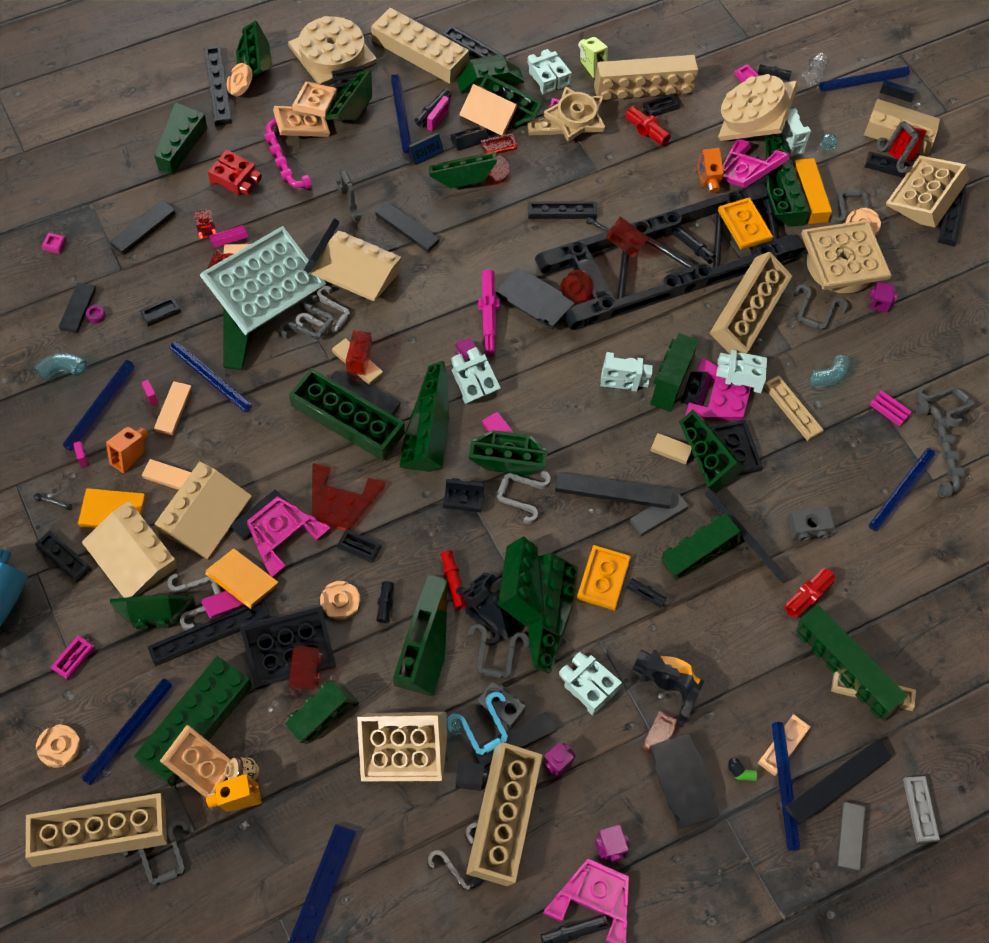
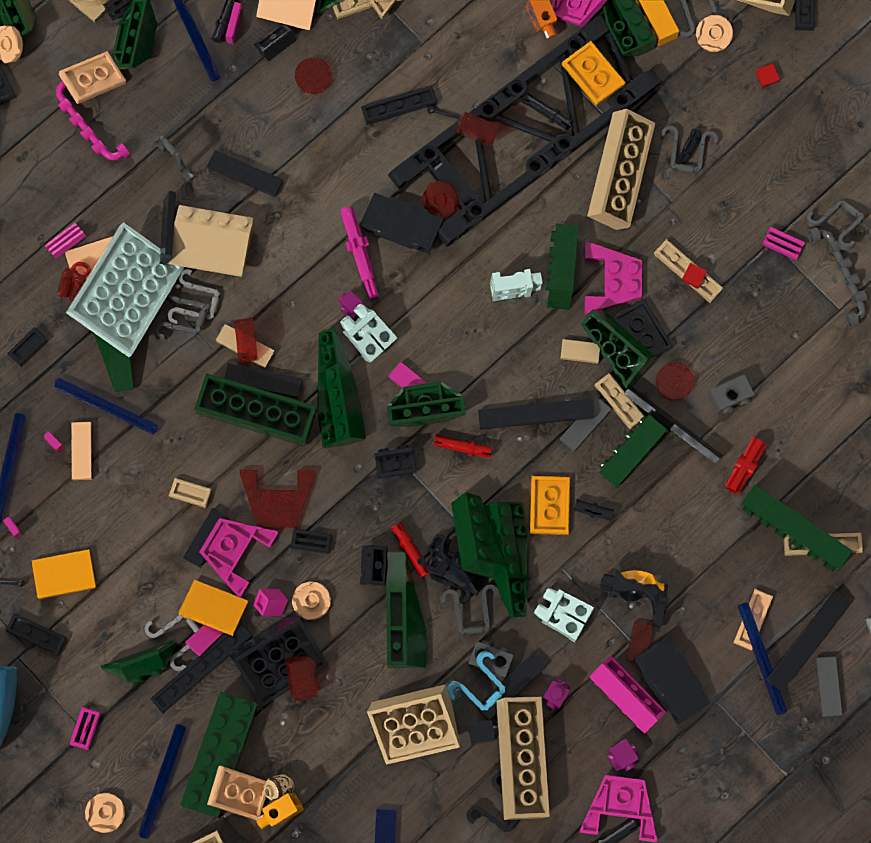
camera: 15 degrees left, 15 degrees up
(126, 448) = (55, 508): orange torso -> none
(129, 551) = (98, 613): tan slope -> none
(165, 474) = (109, 523): light nougat tile -> none
(202, 511) = (153, 551): tan slope -> none
(204, 223) = (36, 233): clear red brick -> none
(234, 173) = (44, 163): red hips -> none
(259, 471) = (190, 493): none -> tan tile
(299, 589) = (270, 602): none -> dark pink panel
(315, 99) = (97, 45): light nougat tile -> none
(320, 711) = (330, 713): dark green wedge -> none
(385, 602) = (354, 590): black pin -> none
(412, 581) = (374, 565): none -> black brick
(425, 148) = (235, 72): slope -> none
(464, 171) = (284, 89): dark green wedge -> none
(499, 144) = (309, 42): clear red tile -> none
(540, 485) = (429, 441): light grey piece -> none
(541, 504) = (463, 446): none -> red pin
(633, 781) = (627, 694): none -> dark pink brick
(696, 500) = (618, 401): none -> tan tile
(697, 388) = (588, 277): black slope -> none
(739, 771) = (718, 657): arm -> none
(742, 369) = (629, 246): light aqua hips -> none
(756, 499) = (674, 381): none -> clear red tile
(798, 411) = (694, 275): none -> red tile
(819, 306) = (689, 145): none -> black axle
(831, 375) = (719, 225): clear light blue cylinder -> none
(845, 256) = (707, 64): tan piece -> none
(882, 297) = (751, 117): magenta brick -> none
(901, 490) = (811, 330): clear blue axle -> none
(904, 269) = (767, 75): none -> red tile

